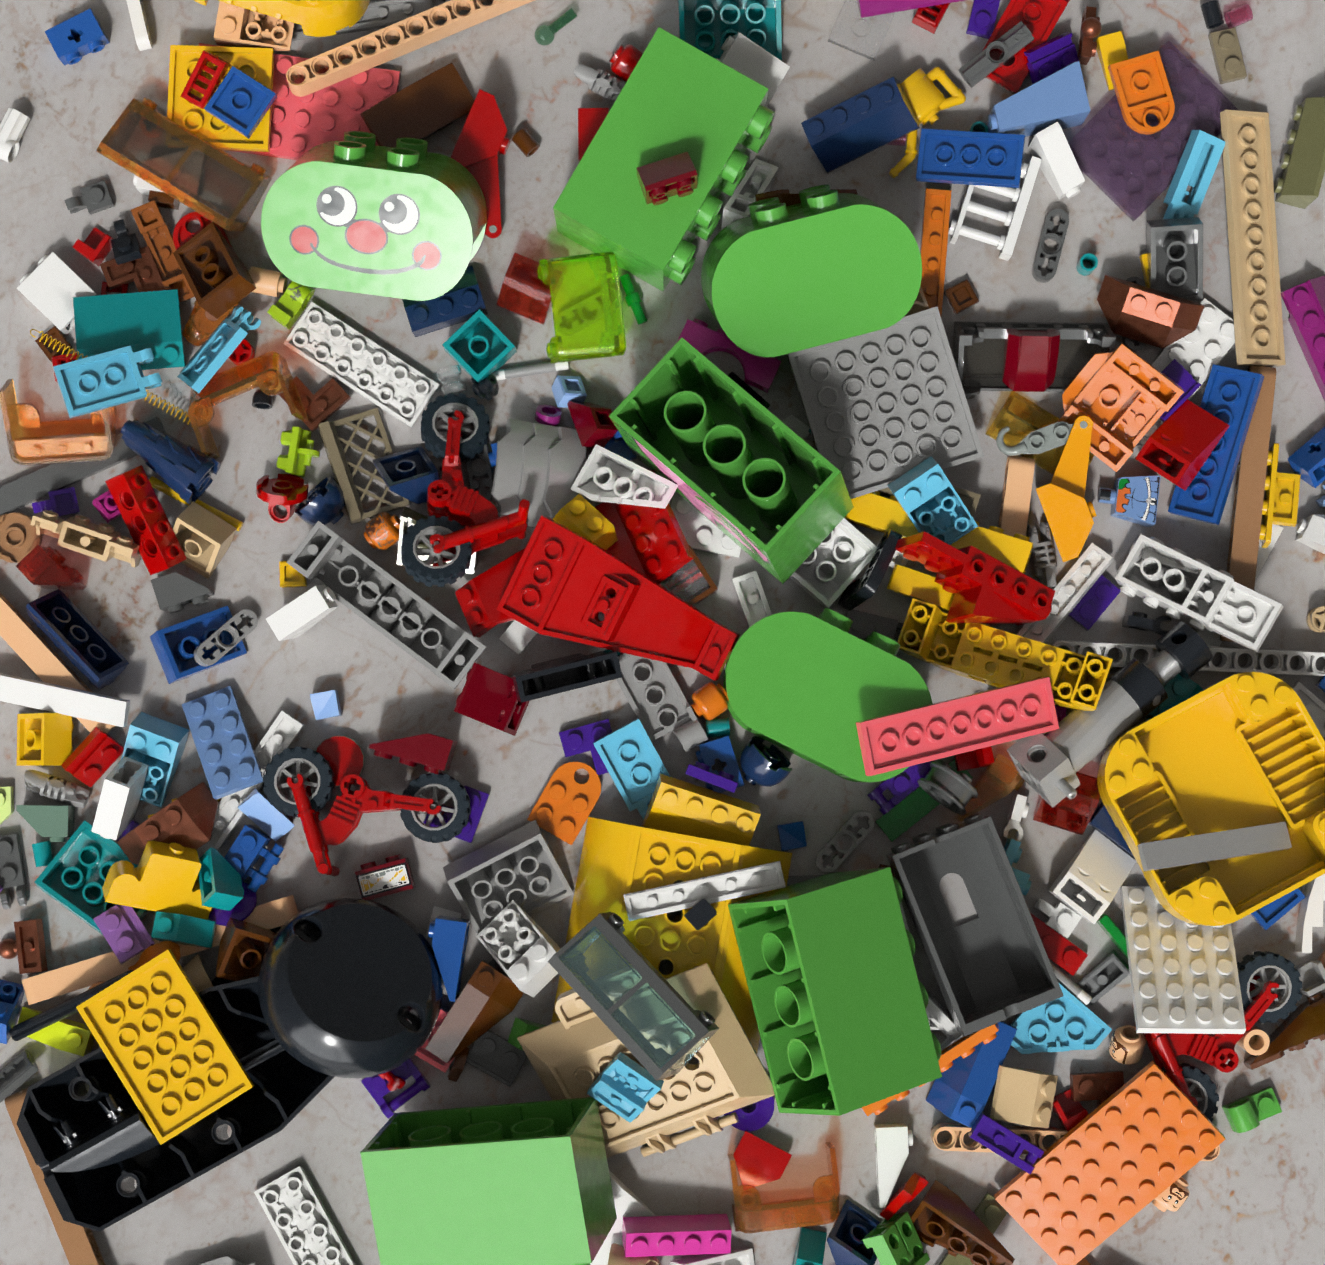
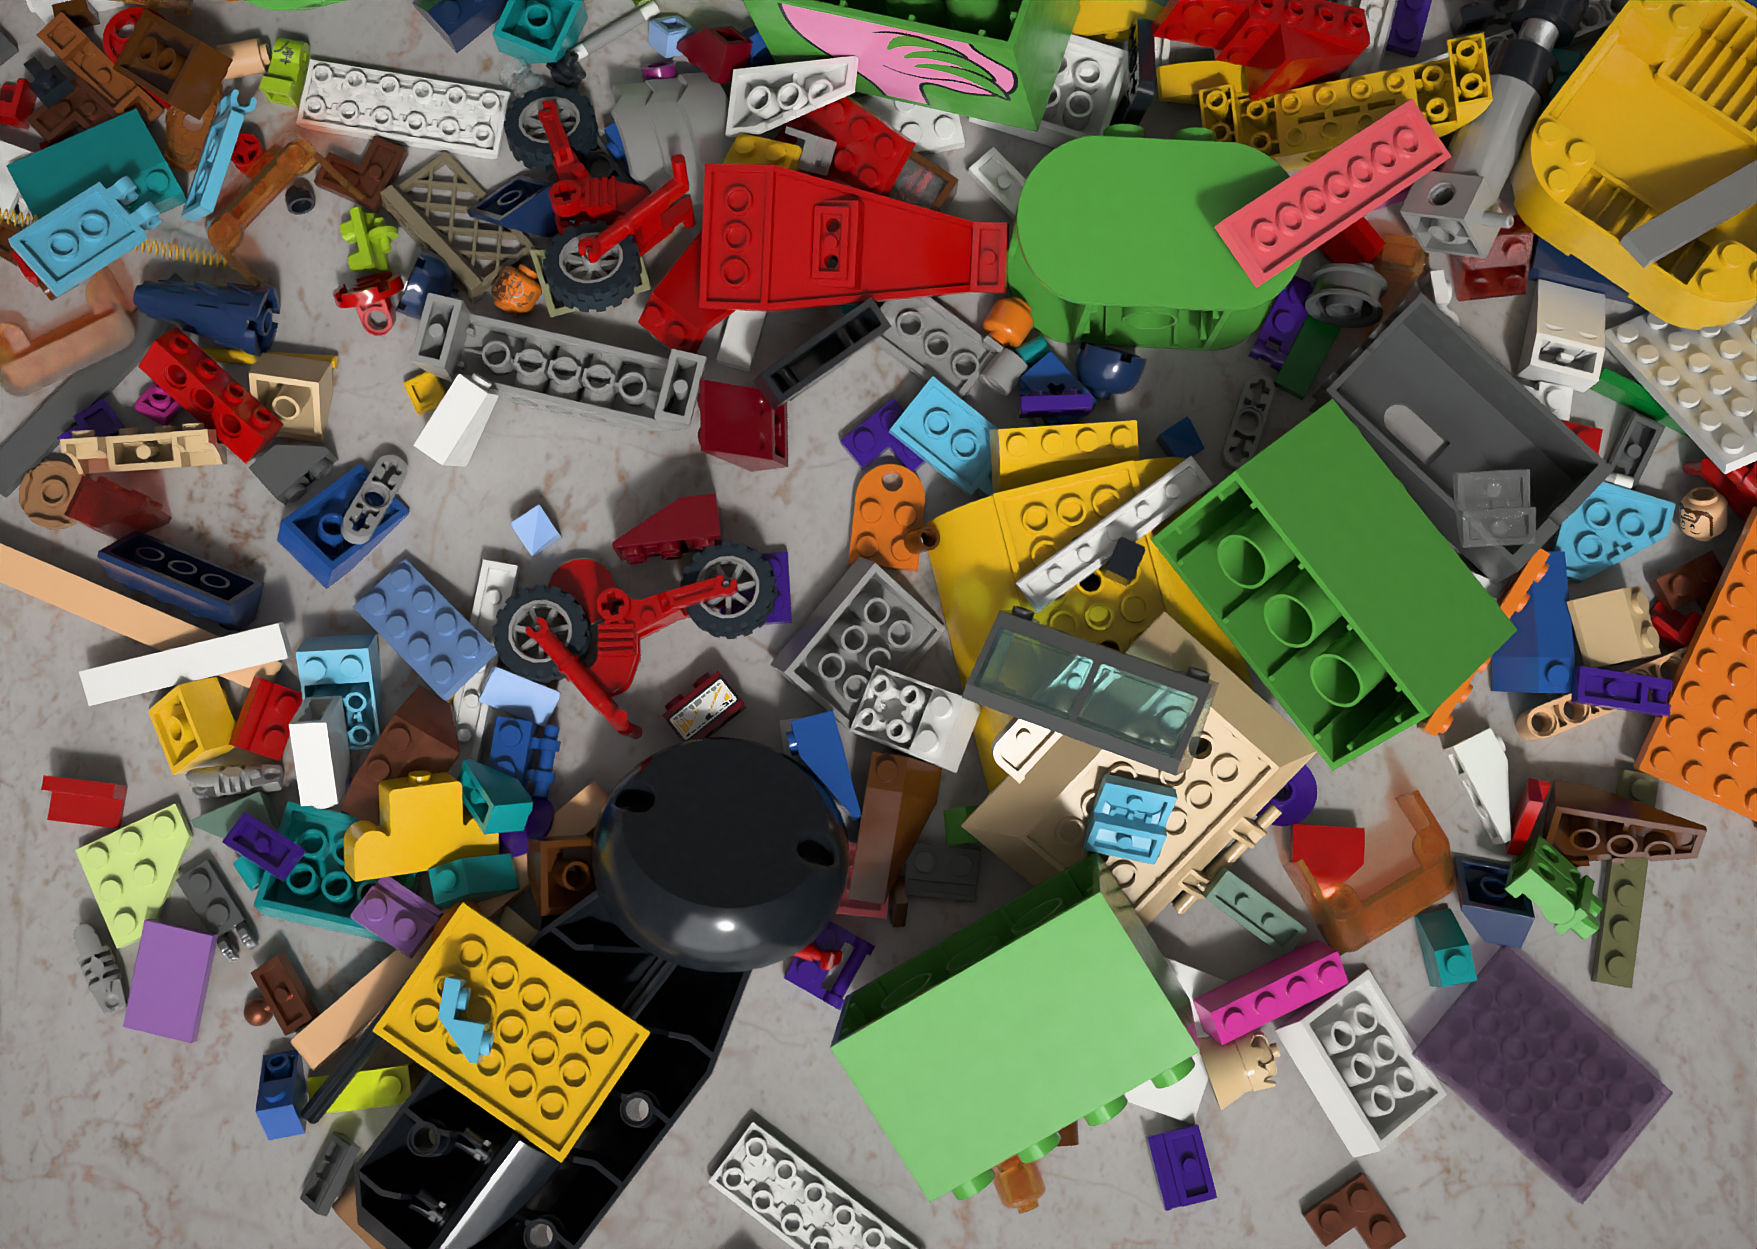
camera: 30 degrees left, 5 degrees down
(56, 847) = (264, 846): none -> dark purple plate
(135, 1036) = (469, 1034): none -> medium azure slope
(576, 824) = (930, 539): none -> reddish brown hinge
(625, 527) = (816, 151): none -> light grey panel
(691, 1177) = (1254, 911): none -> sand green plate
(967, 987) = (1494, 508): none -> clear slope

